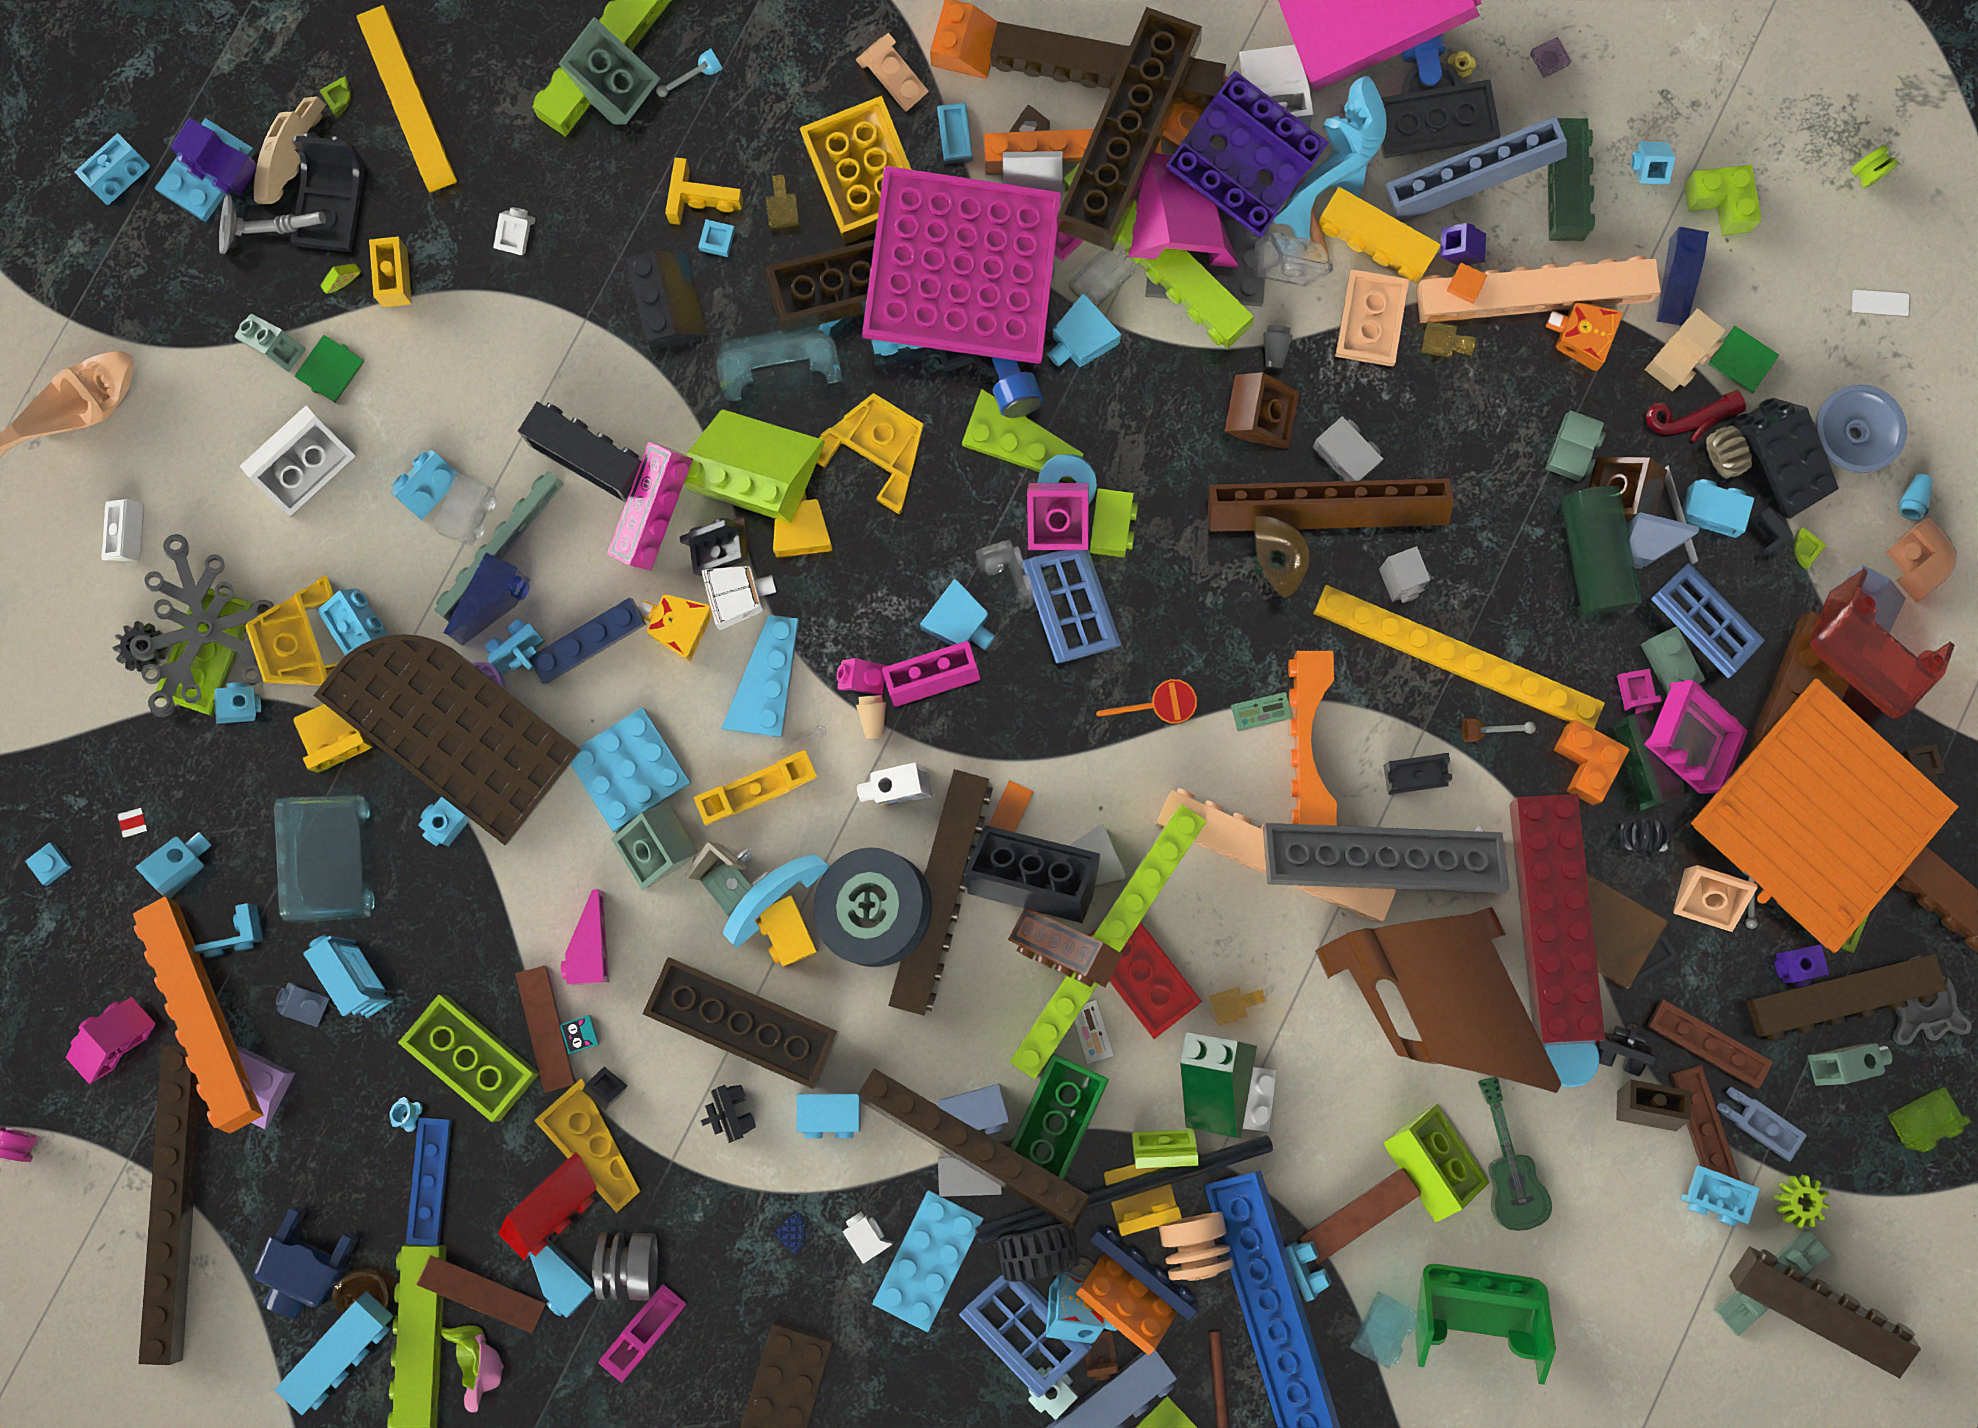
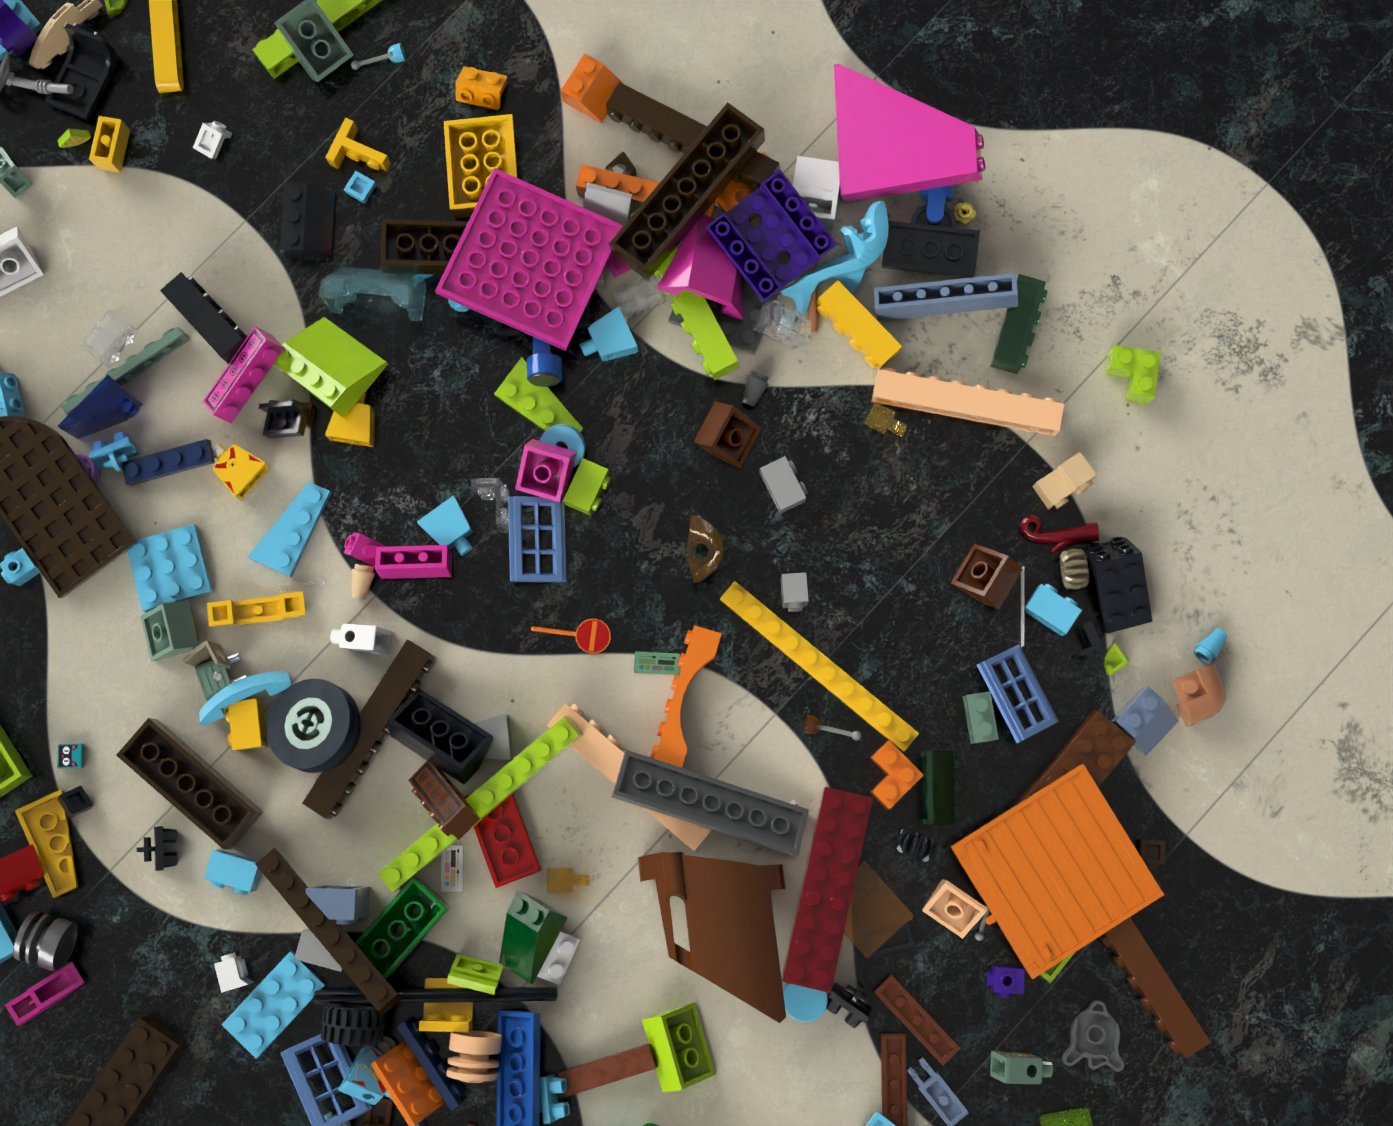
camera: 20 degrees right, 0 degrees up
(329, 368) = (45, 204): green piece -> none
(424, 483) = (86, 310): medium azure bracket -> none
(545, 1028) = (46, 740): copper tile -> none
(587, 950) = (95, 694): dark pink slope -> none
(735, 593) = (288, 459): white torso -> none
(782, 206) = (416, 177): clear yellow plate -> none
(792, 1233) = (180, 953): clear blue tile -> none
(826, 76) = (480, 87): none -> light orange bracket
(882, 436) = (436, 371): yellow wing -> none
(893, 72) = (530, 99): light nougat bracket -> none
(955, 133) = (563, 158): medium azure tile -> none
(1011, 807) = (444, 681): orange sticker -> none
(1332, 504) = (756, 521): reddish brown brick -> none
(1372, 318) = (834, 387): light nougat plate -> none
(1417, 773) = (758, 745): black hinge -> none
(1463, 244) = (920, 351): dark purple brick -> none
(1467, 283) = (911, 381): orange tile -> none
(1517, 1194) = (733, 1092): clear green piece -> none
(1550, 57) = (1034, 226): clear purple plate -> none
(1575, 446) = (958, 529): sand green brick -> none
(1585, 333) = (993, 445): orange torso -> none
(1600, 550) = (950, 616): clear green brick -> none
(1638, 691) = (947, 732): dark pink bracket -> none
(1653, 162) = (1086, 329): medium azure brick -> none
(1653, 1105) = (857, 1054): dark brown brick -> none
(1655, 537) = (993, 619): sand blue slope -> none
(1681, 274) = (1082, 422): clear blue slope -> none
(1697, 737) = (977, 781): dark pink window -> none
(1743, 359) = (1110, 500): green piece -> none
(1845, 996) = (1033, 1014): dark brown brick -> none
(1869, 165) = (1257, 381): lime wheel -> none
(1869, 655) = (1129, 761): clear red windscreen -> none
(1875, 419) = (1197, 576): sand blue dish -> none
(1880, 302) = (1231, 487): white sticker -> none

